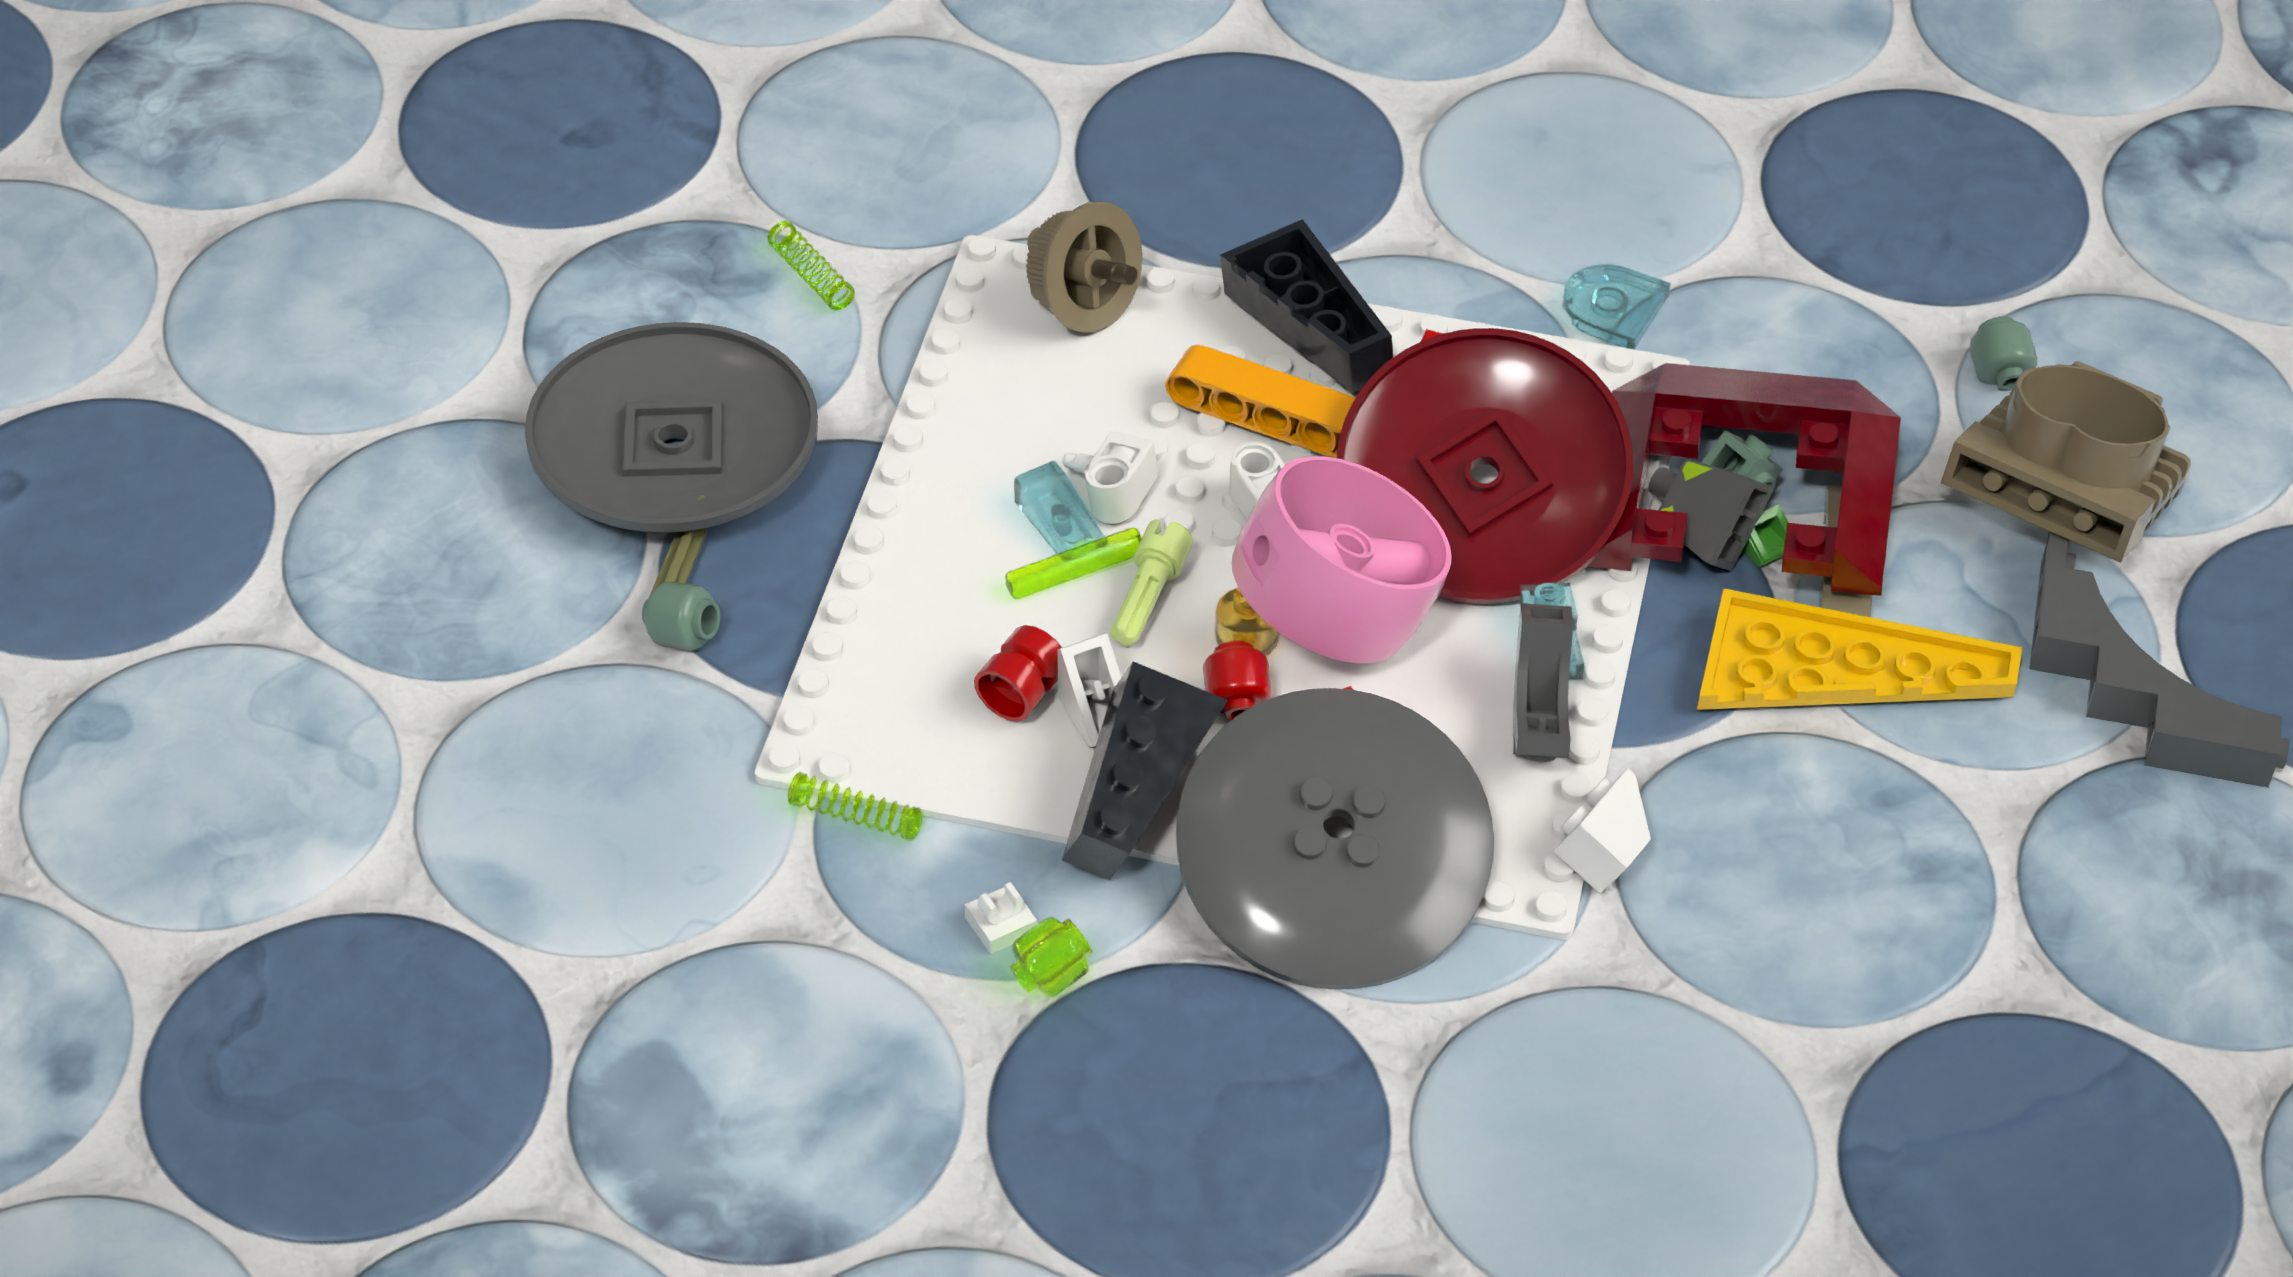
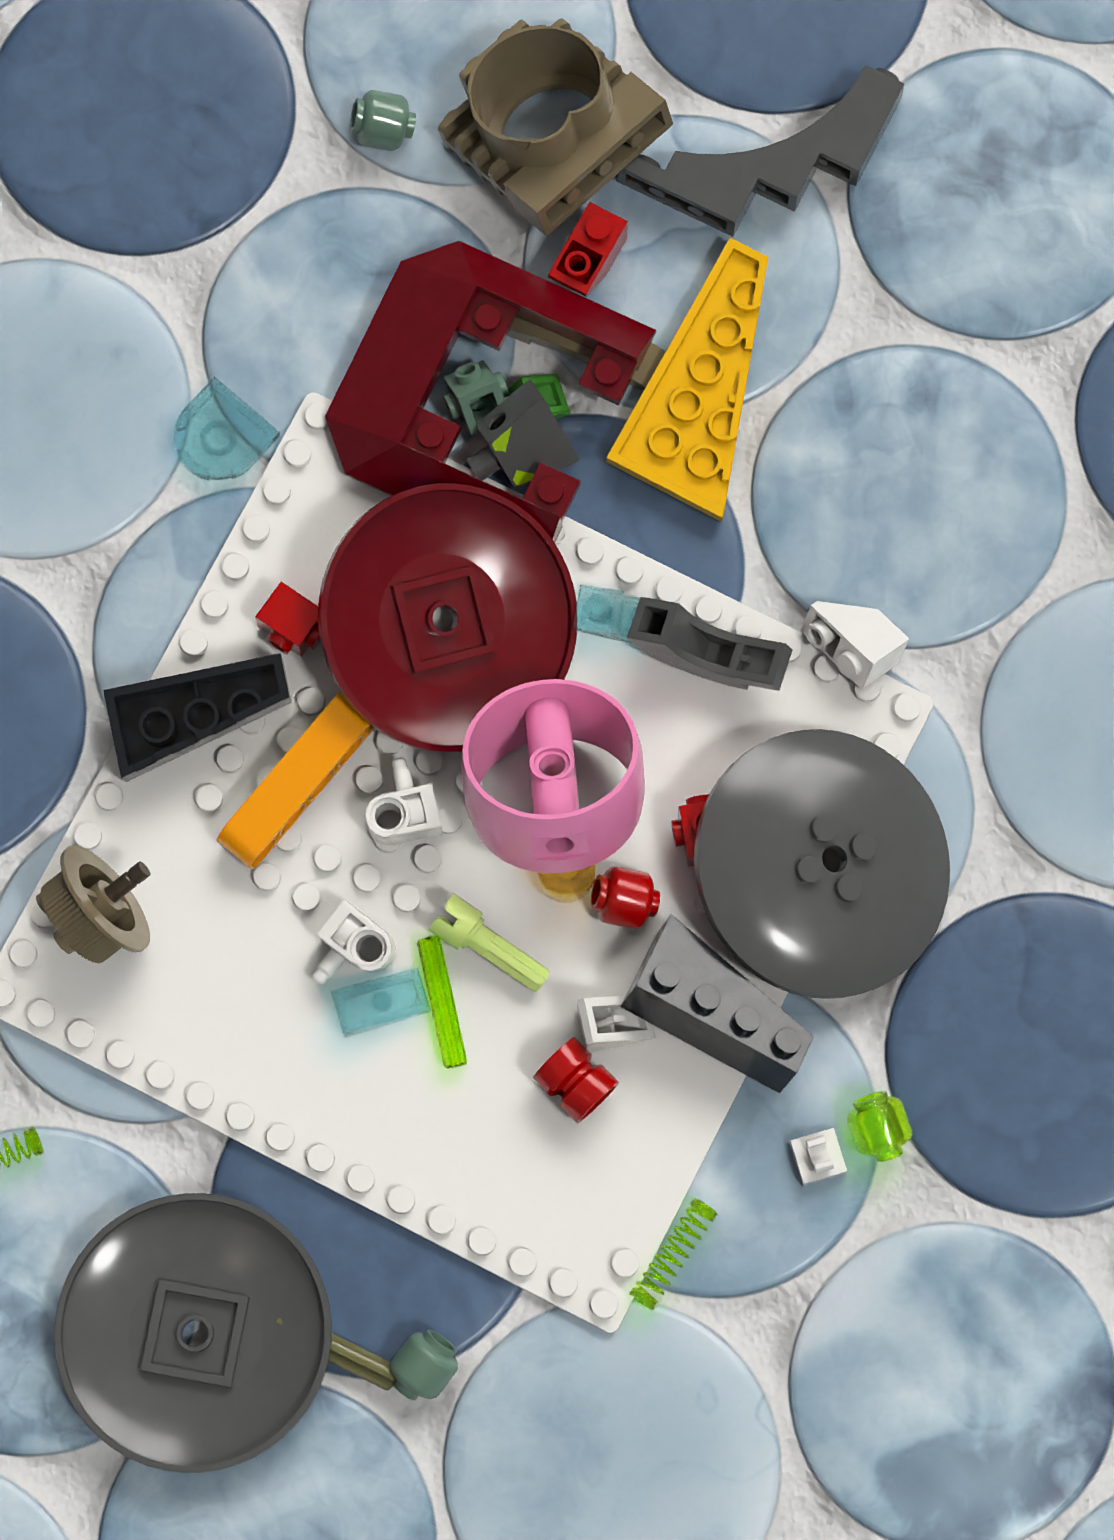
camera: 75 degrees left, 30 degrees up
(1944, 532) = (590, 250): none -> red slope

